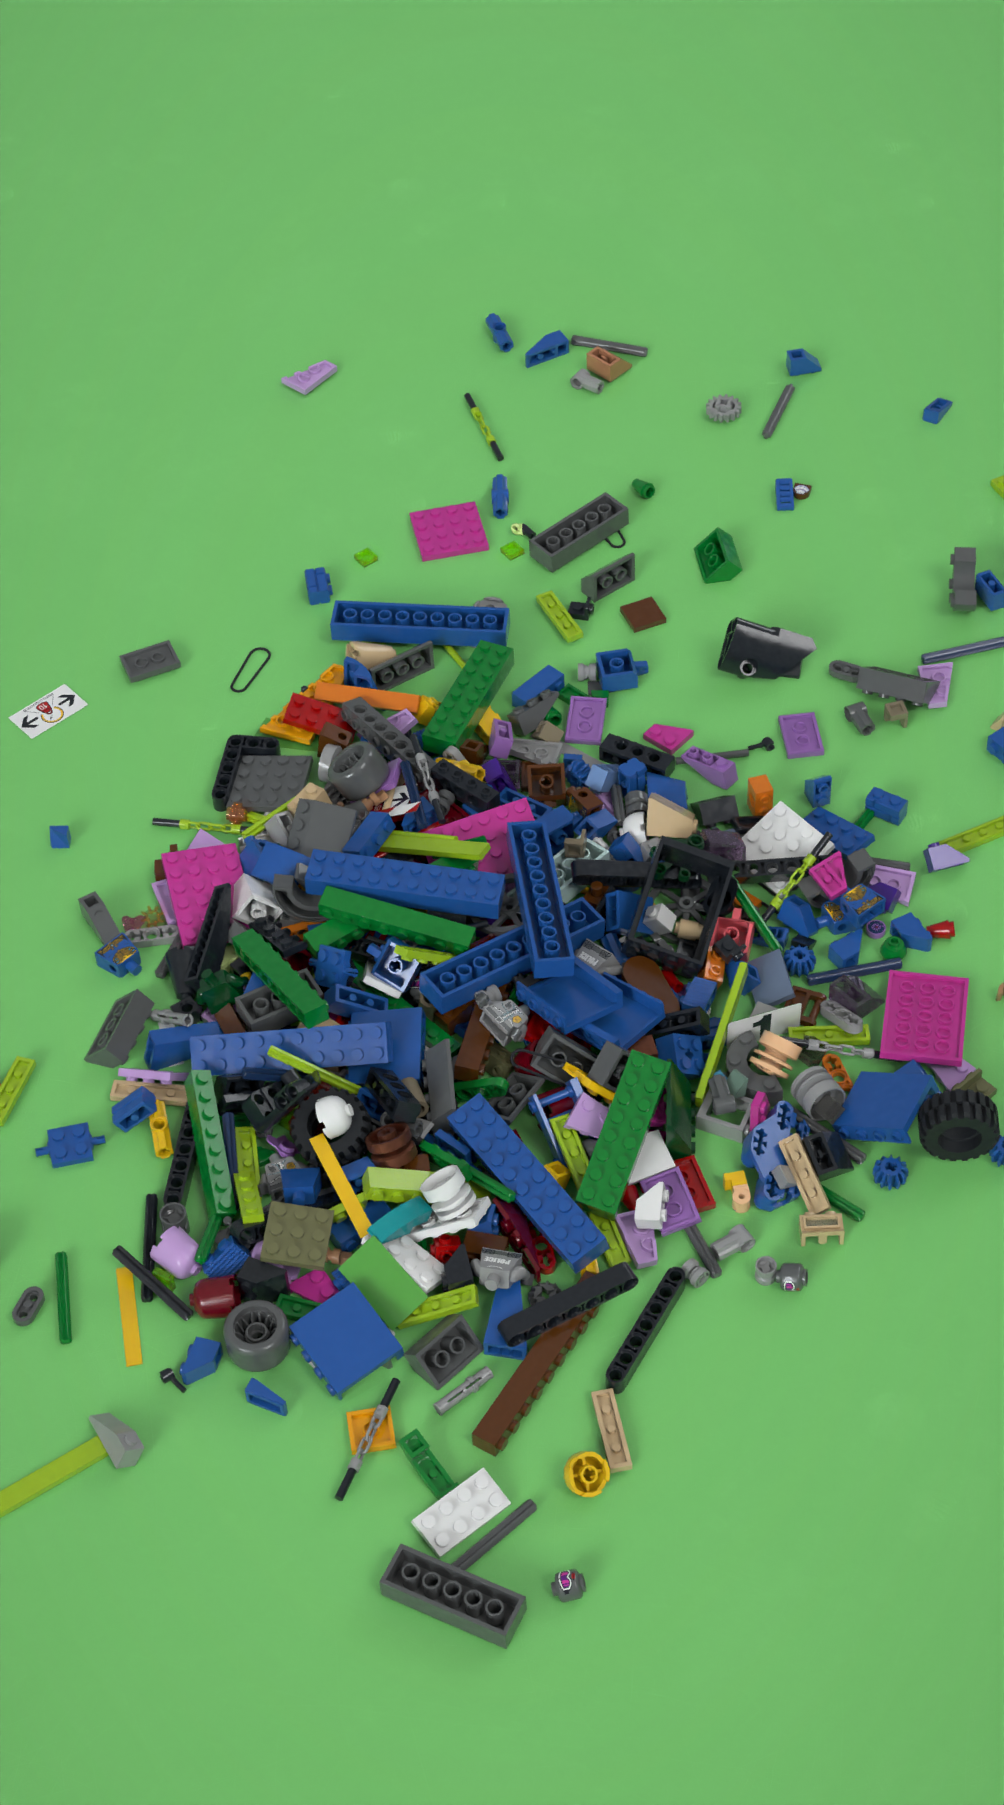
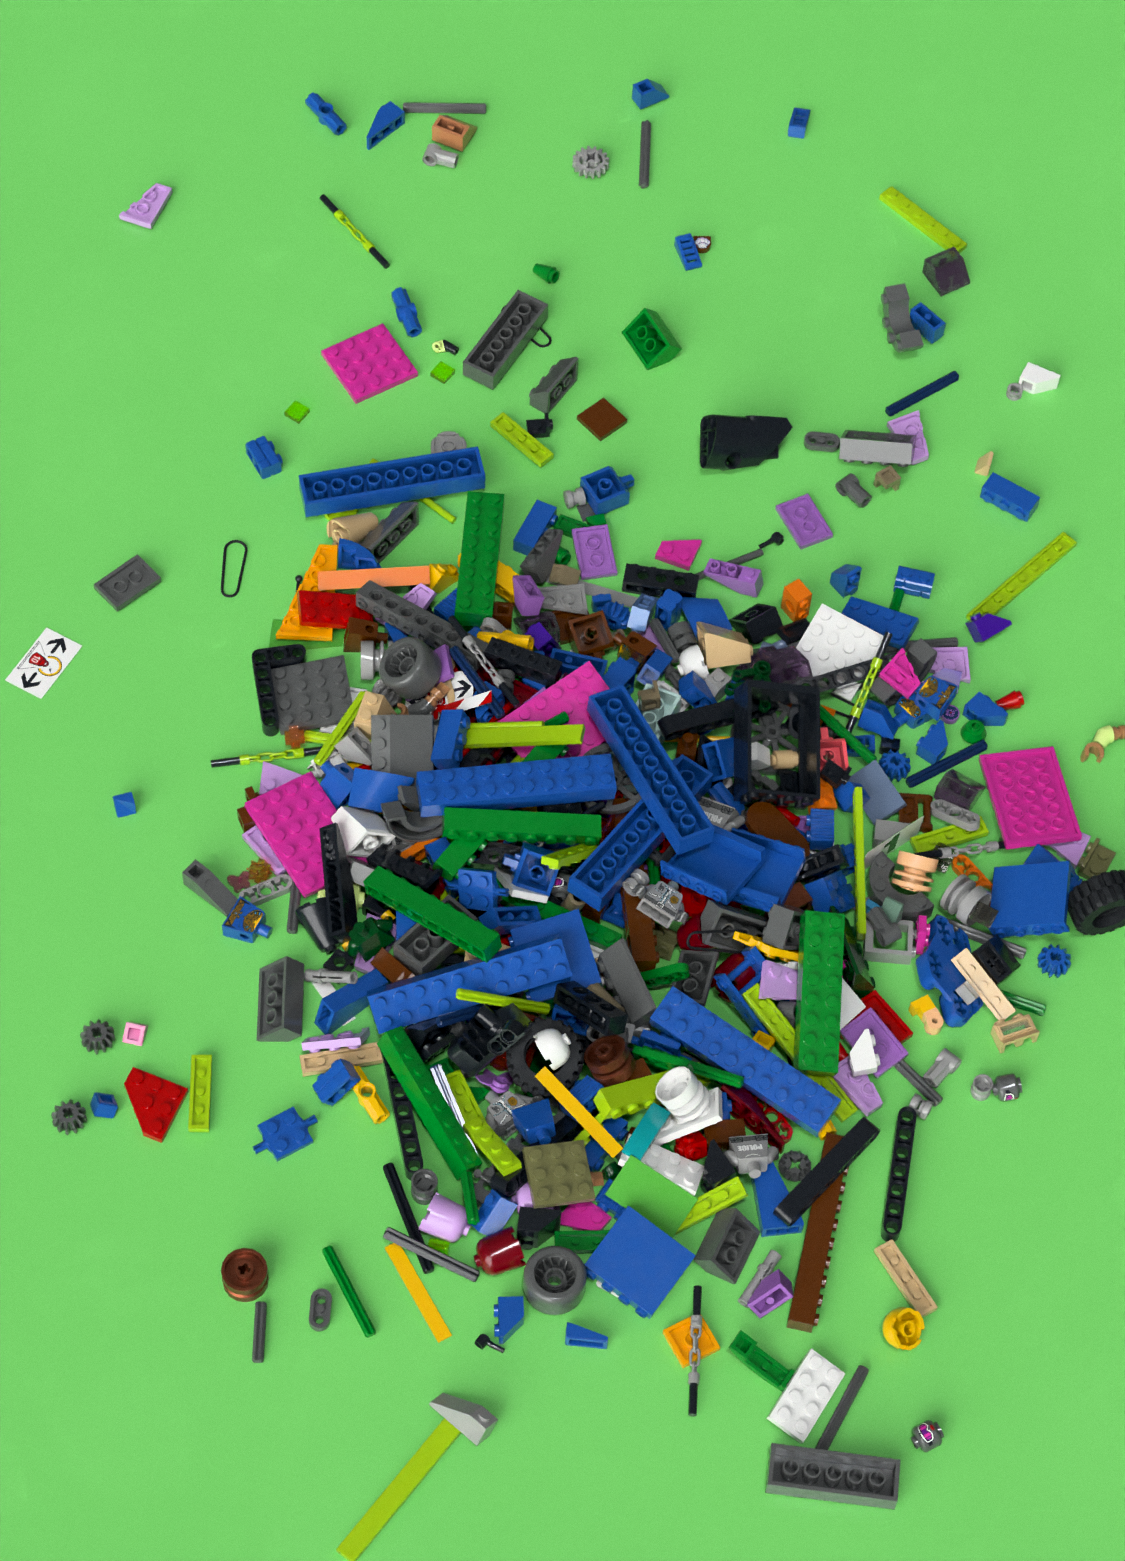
camera: 25 degrees left, 10 degrees up
(465, 1406) = (770, 1293): none -> medium lavender slope

